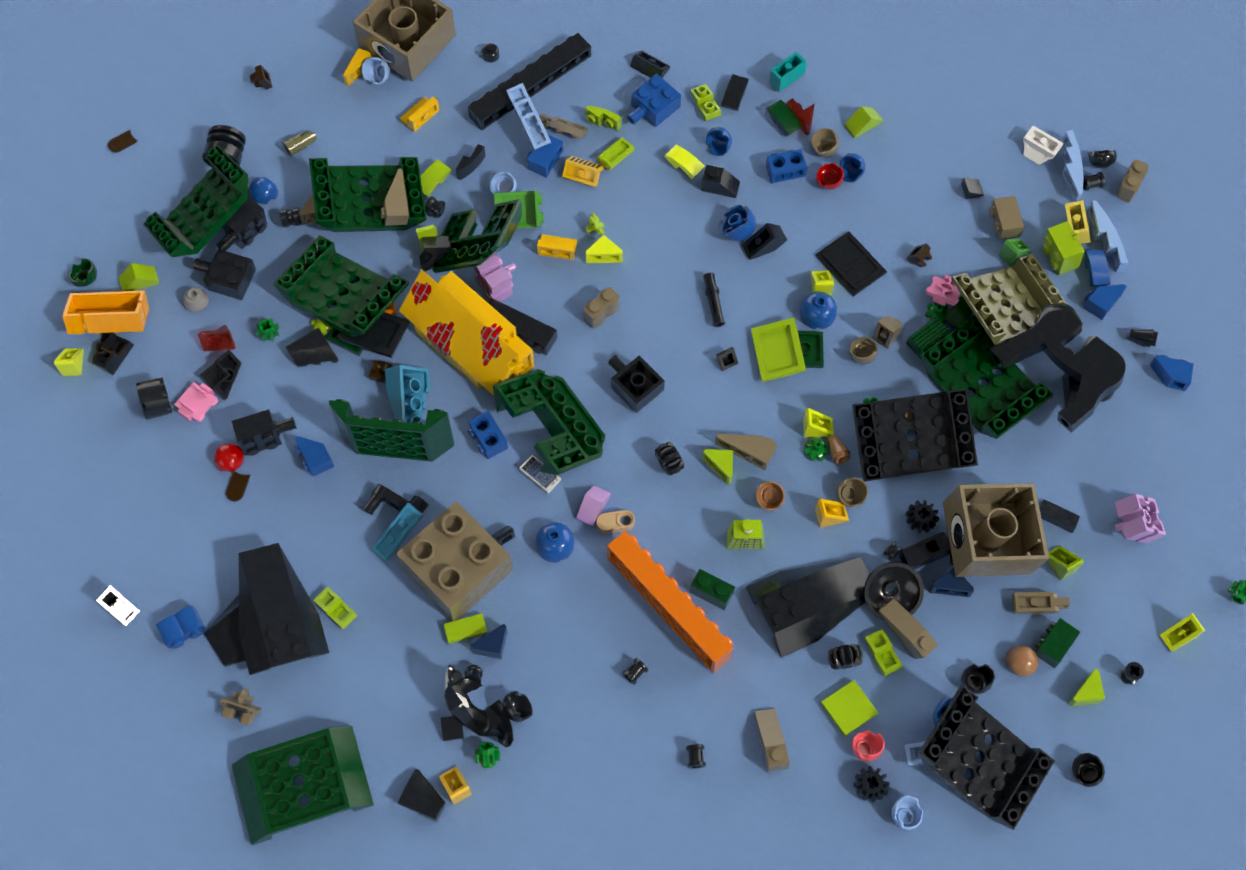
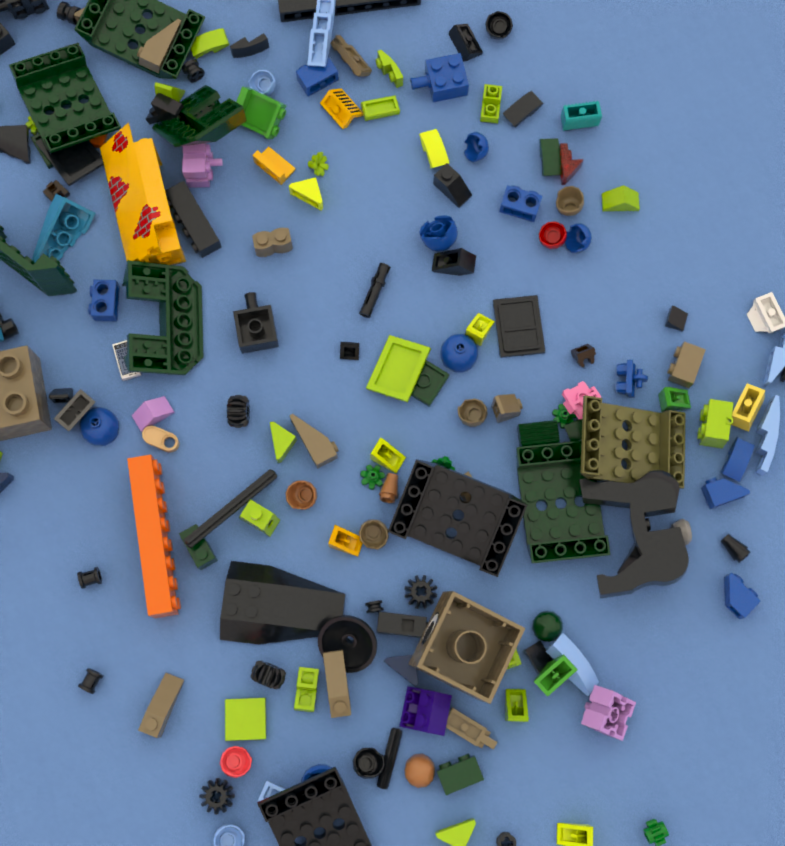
camera: 30 degrees right, 10 degrees up
(529, 536) = (74, 410): none -> dark grey brick
(670, 37) = (498, 25): none -> black hair
(719, 540) = (230, 508): none -> black axle
(964, 247) = (628, 370): none -> blue hips
(988, 658) = (389, 758): none -> black axle
(993, 608) = (425, 711): none -> dark purple slope
(1044, 483) = (547, 626): none -> dark green hair
(1077, 513) = (555, 674): none -> bright green slope
(1084, 499) = (584, 677): none -> light blue slope

